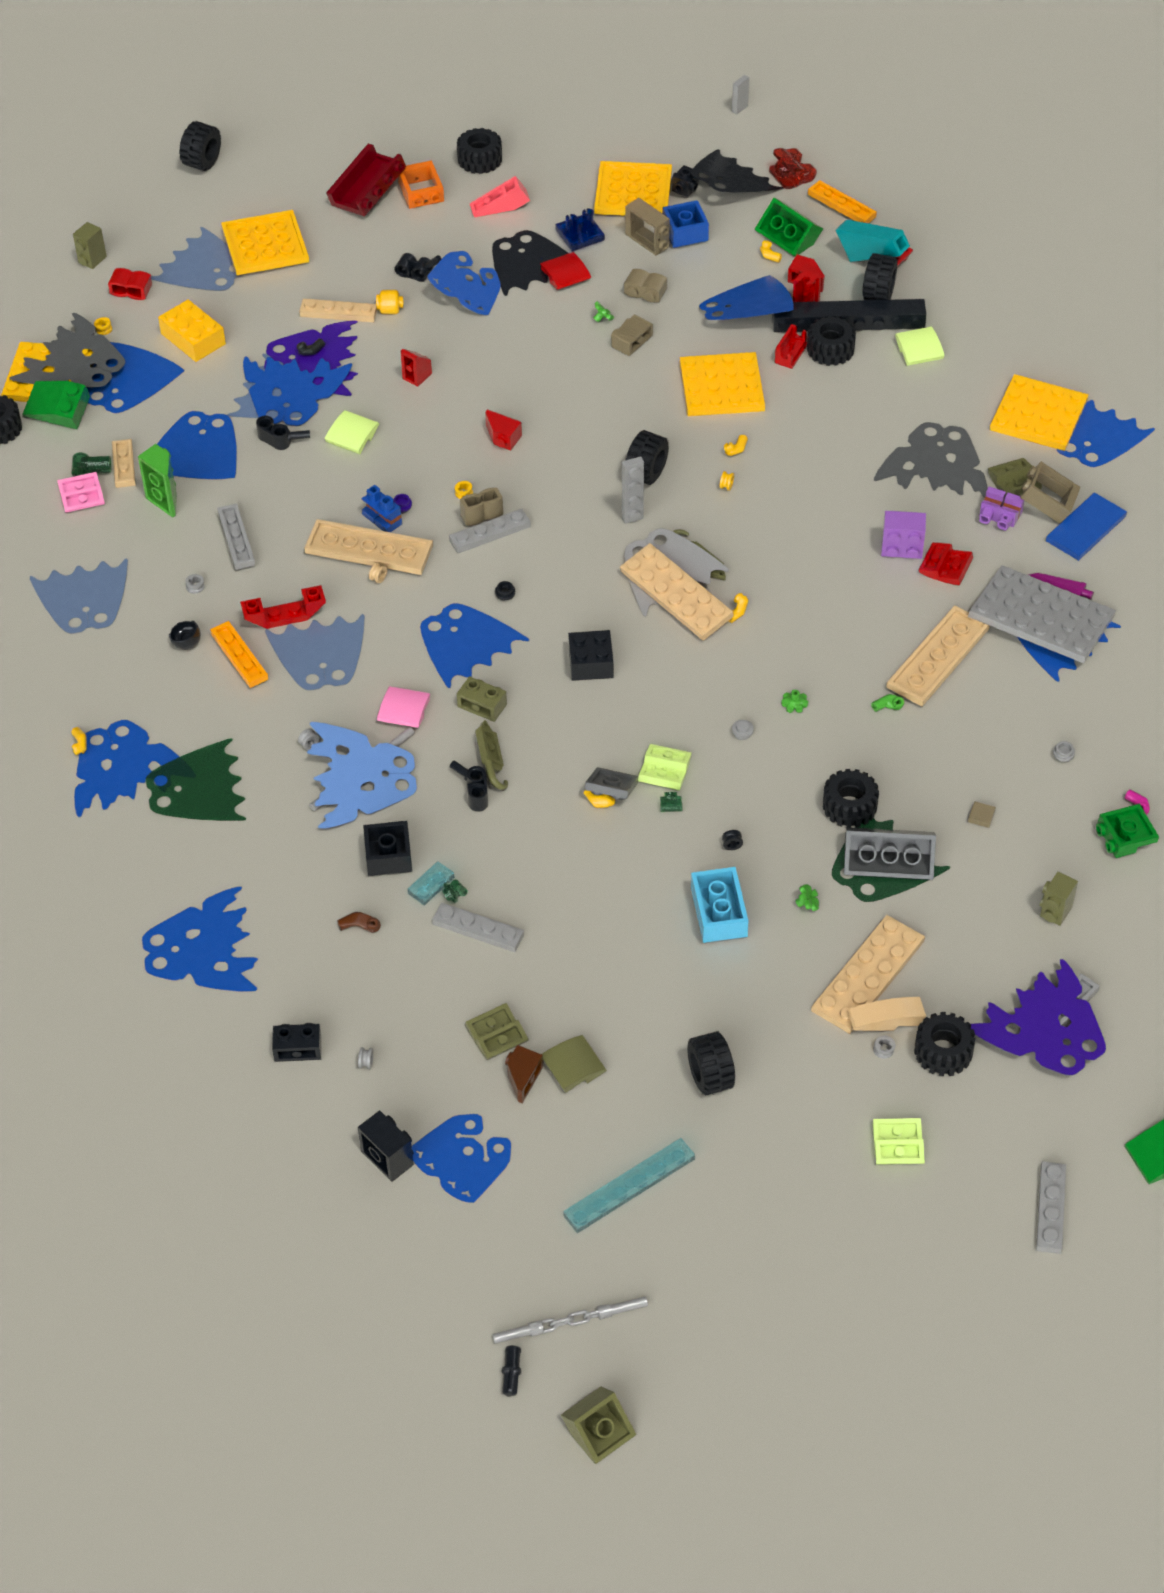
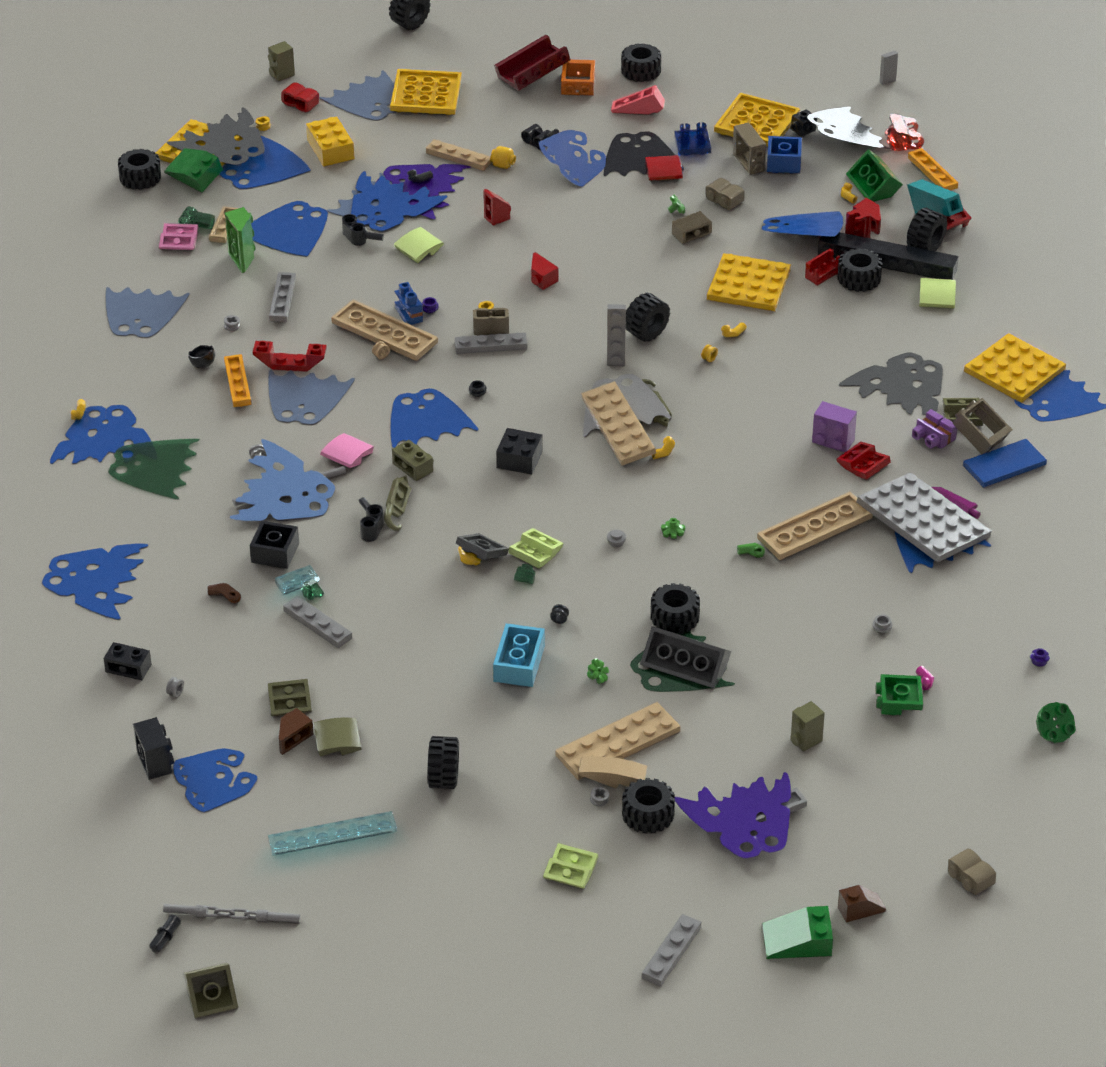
camera: 20 degrees right, 10 degrees down
(981, 814) = (783, 651): dark tan tile -> none

